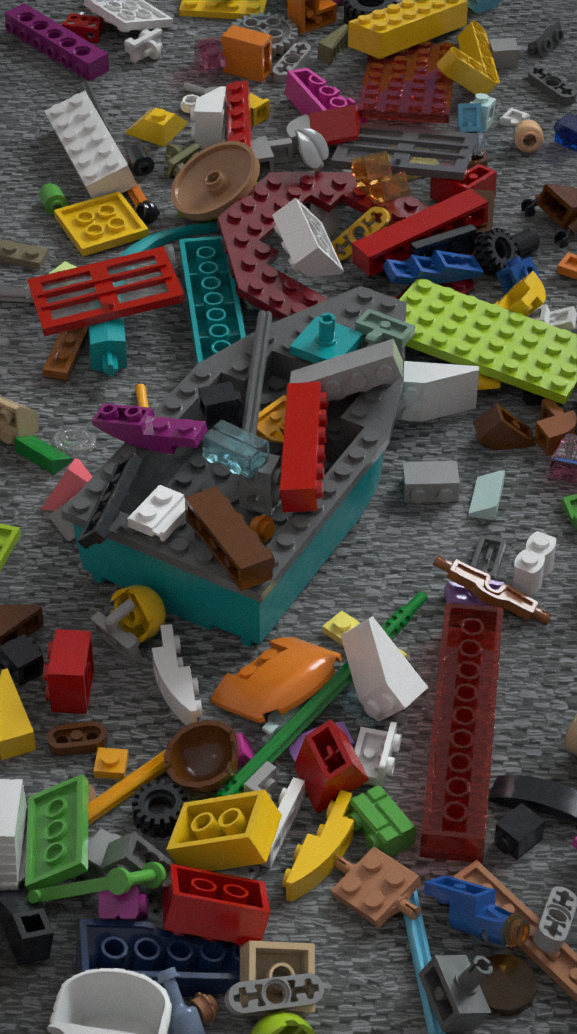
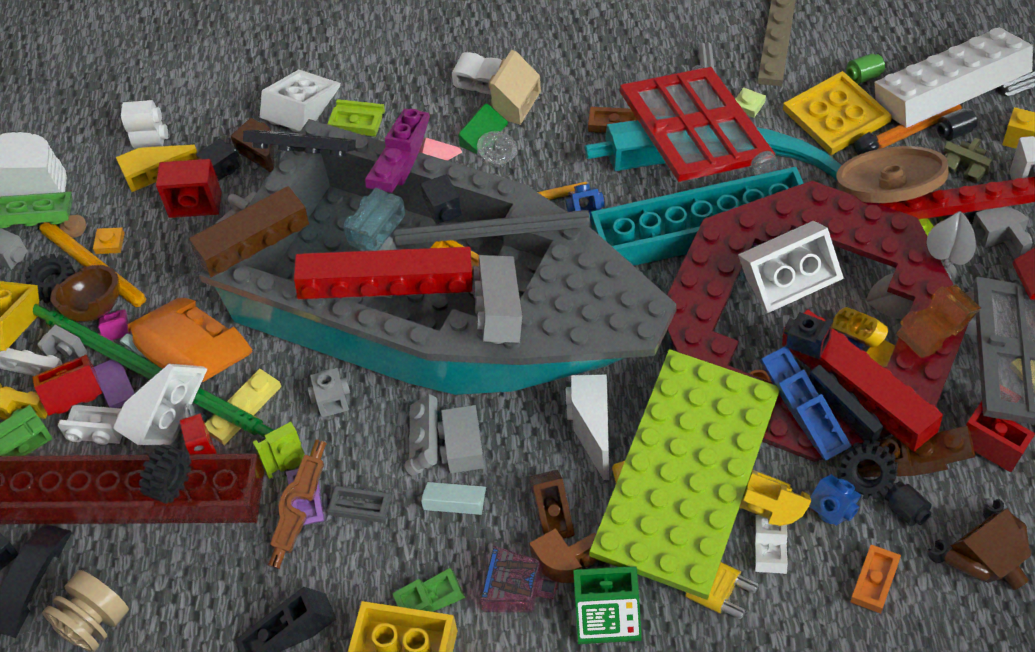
camera: 90 degrees right, 10 degrees up
(76, 738) = (132, 218): reddish brown plate -> none
(159, 513) = (302, 180): white plate -> none
(169, 376) = (594, 198): none -> blue brick
(174, 679) = (173, 272): white slope -> none
(325, 340) = (555, 278): teal tile -> none
(366, 566) = (329, 392): none -> light grey brick
(383, 328) = (578, 323): sand green plate -> none
(388, 236) = (808, 334): none -> black brick
(421, 508) = (422, 435): none -> light grey plate
(421, 654) = (196, 433): none -> red piece
(437, 590) = (280, 450): none -> lime plate
(478, 646) = (165, 473): none -> black tyre
(534, 563) = (342, 542): white brick -> none

